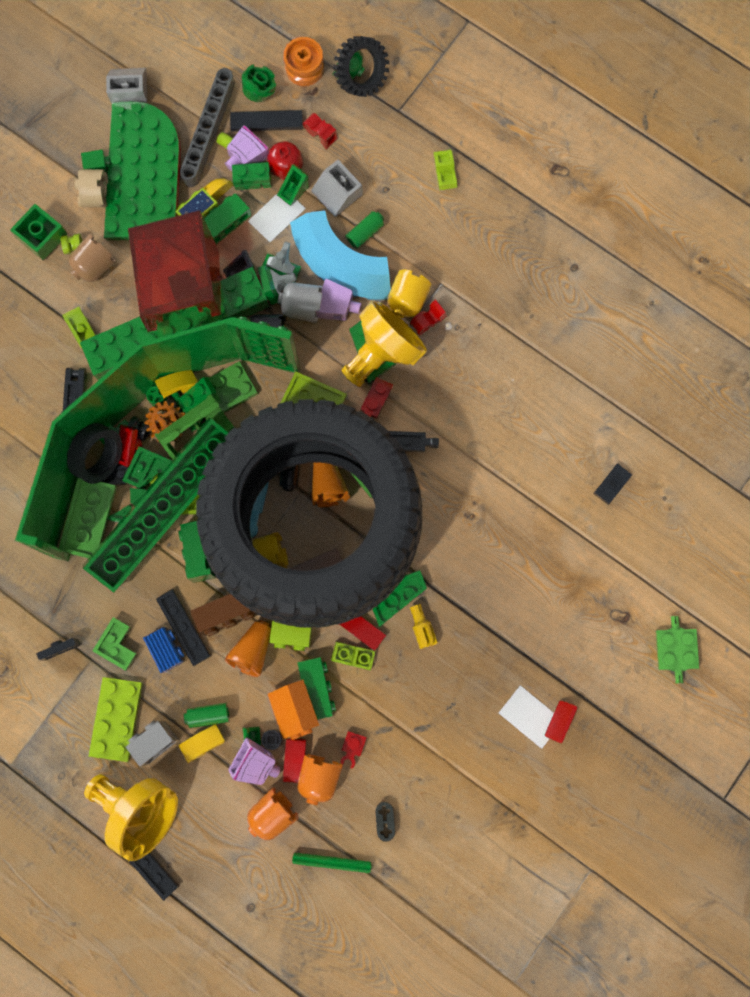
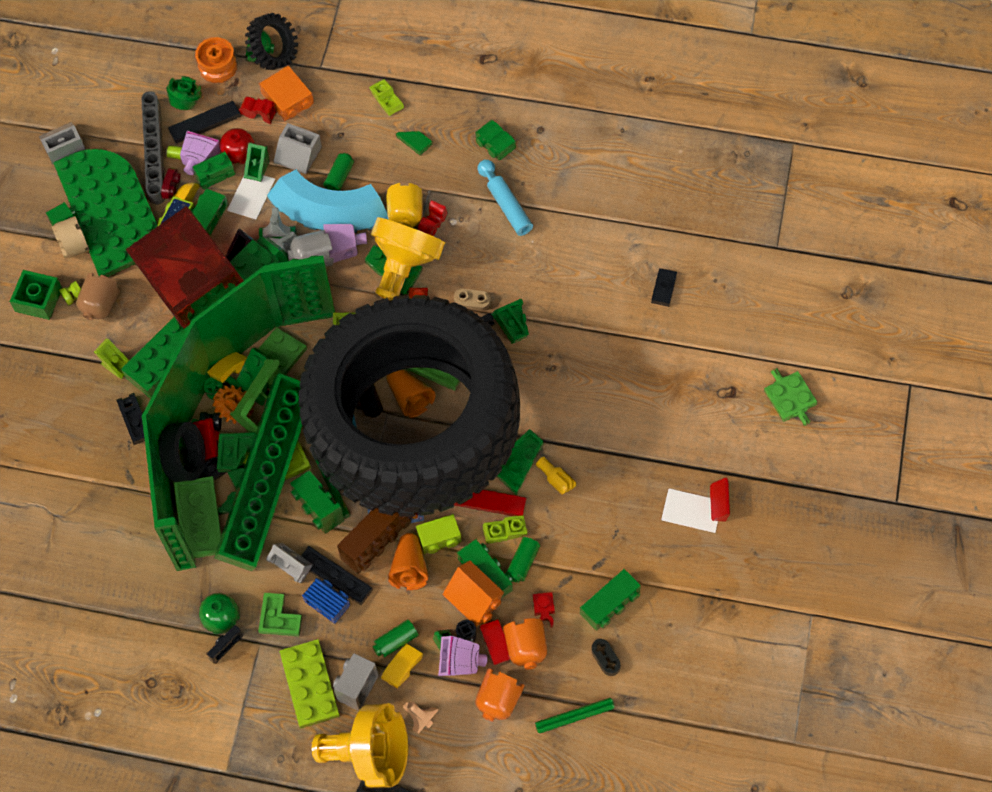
camera: 25 degrees left, 15 degrees down
(67, 616) = (219, 613): none -> green cylinder
(149, 597) = (289, 561): none -> light grey hinge
(197, 798) = (421, 717): none -> light nougat piece
(206, 171) = (169, 184): none -> dark red plate
(354, 125) = (287, 93): none -> orange brick
(354, 694) = (523, 559): none -> green brick
(414, 771) = (610, 600): none -> green brick
(427, 416) = (471, 300): none -> tan plate
(451, 227) = (415, 140): none -> green tile
(455, 454) = (512, 321): none -> green wing
(507, 326) = (505, 198): none -> medium azure piece
(525, 261) = (495, 140): none -> green brick

